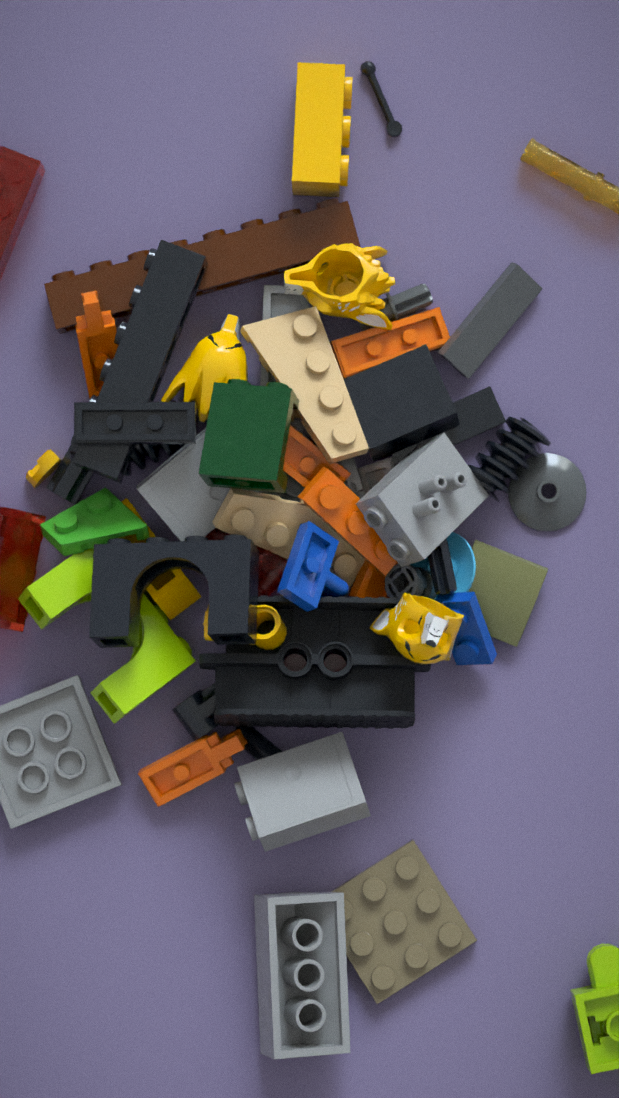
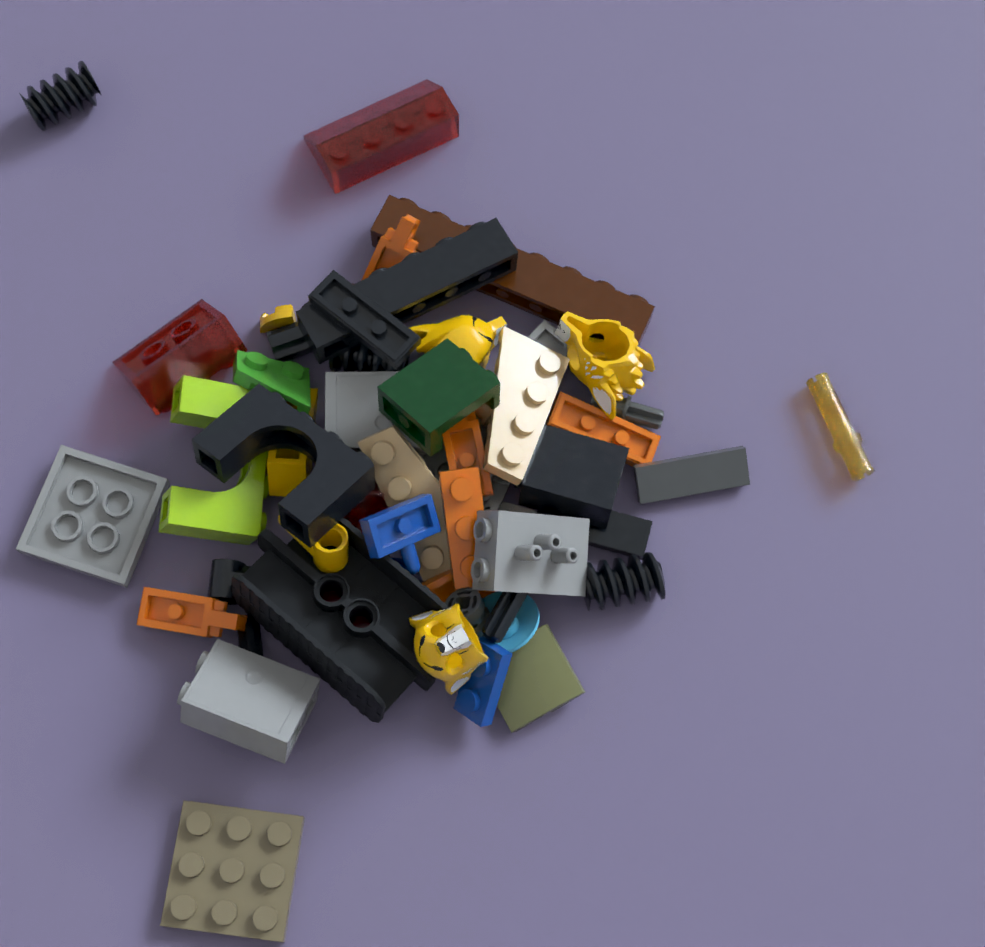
camera: 30 degrees right, 15 degrees down
(302, 974) = (122, 849): light grey slope -> none
(321, 129) = (675, 243): yellow brick -> none
(394, 128) = (729, 293): black hinge -> none
(545, 513) = (630, 655): dark grey dish -> none

